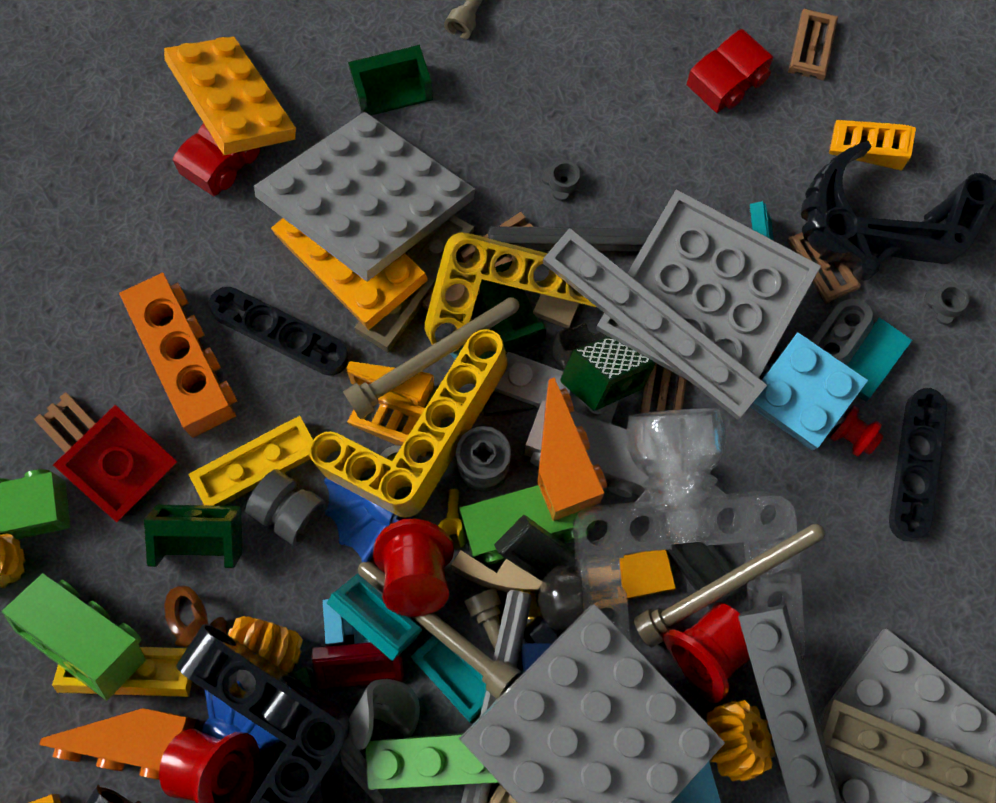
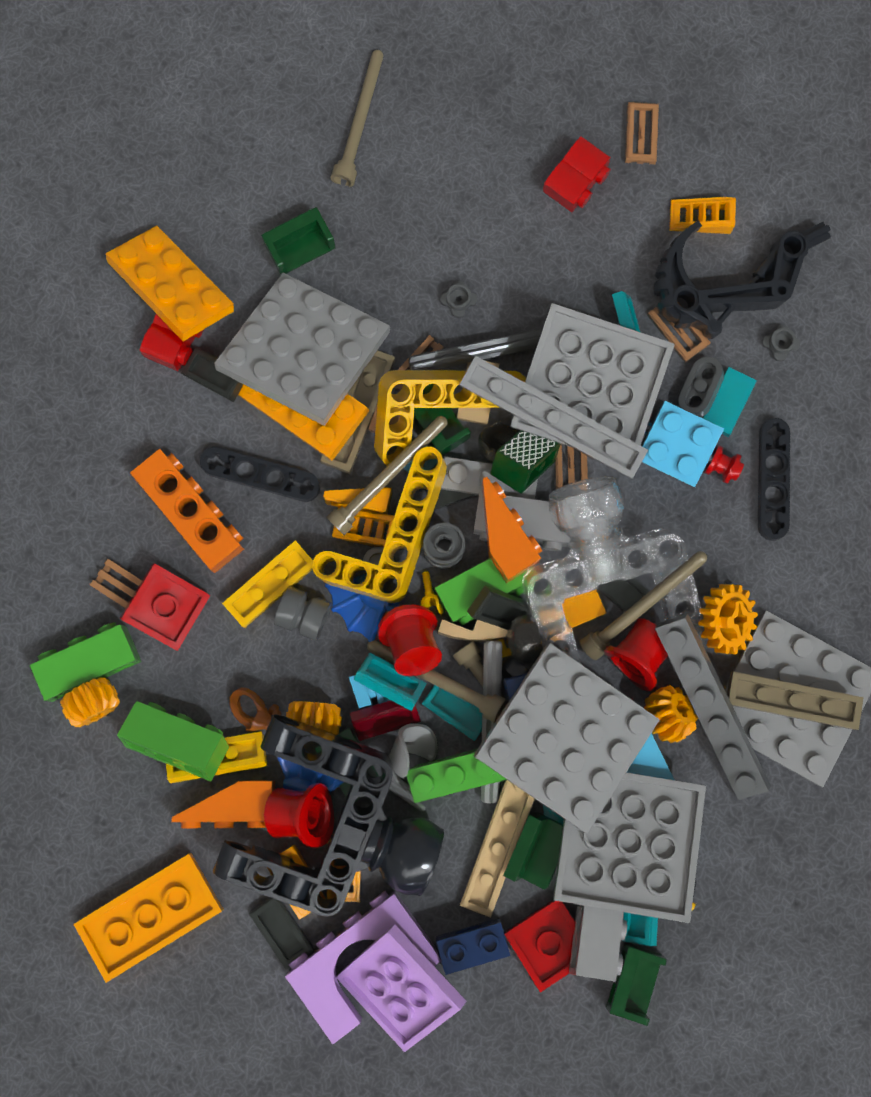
camera: 10 degrees left, 10 degrees up
(193, 531) = (239, 645): dark green panel -> none
(241, 201) = (202, 370): none -> pearl dark grey tile
(835, 627) = (728, 619): none -> light orange gear

